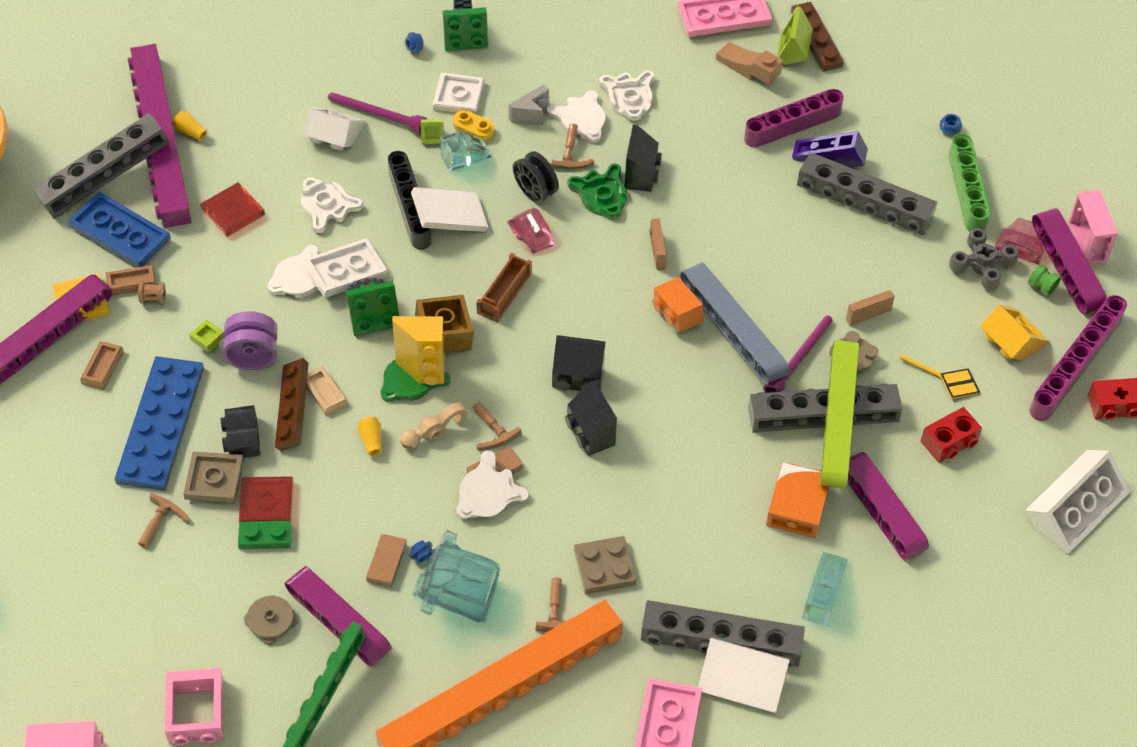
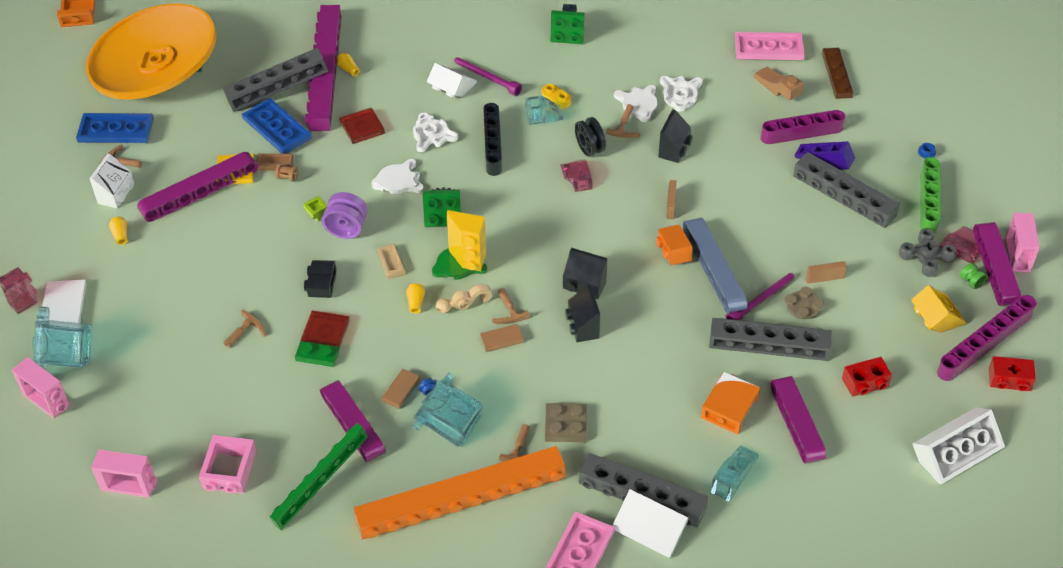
camera: 15 degrees right, 5 degrees down
(102, 365) = (236, 216): medium nougat tile -> none
(159, 423) = (264, 263): blue plate -> none
(213, 477) = (291, 306): dark tan plate -> none
(270, 618) = (303, 413): dark tan piece -> none
(291, 405) = (363, 266): reddish brown plate -> none
(342, 266) = (431, 176): white tile -> none
(414, 42) = (528, 32): blue plate -> none
(432, 131) = (521, 93): lime tile -> none
(449, 209) = (519, 149): white tile -> none
(456, 320) = (497, 227): pearl gold brick -> none
(458, 93) = (551, 72): white tile -> none
(486, 491) = (490, 352): white tile -> none
(504, 288) = (546, 211): dark orange container -> none
(530, 107) = (600, 89): light grey slope -> none
(601, 192) = (639, 157): green tile -> none
(795, 38) = (819, 71): lime slope -> none
(839, 414) = (777, 343): lime beam -> none
(958, 382) = (882, 340): piece -> none

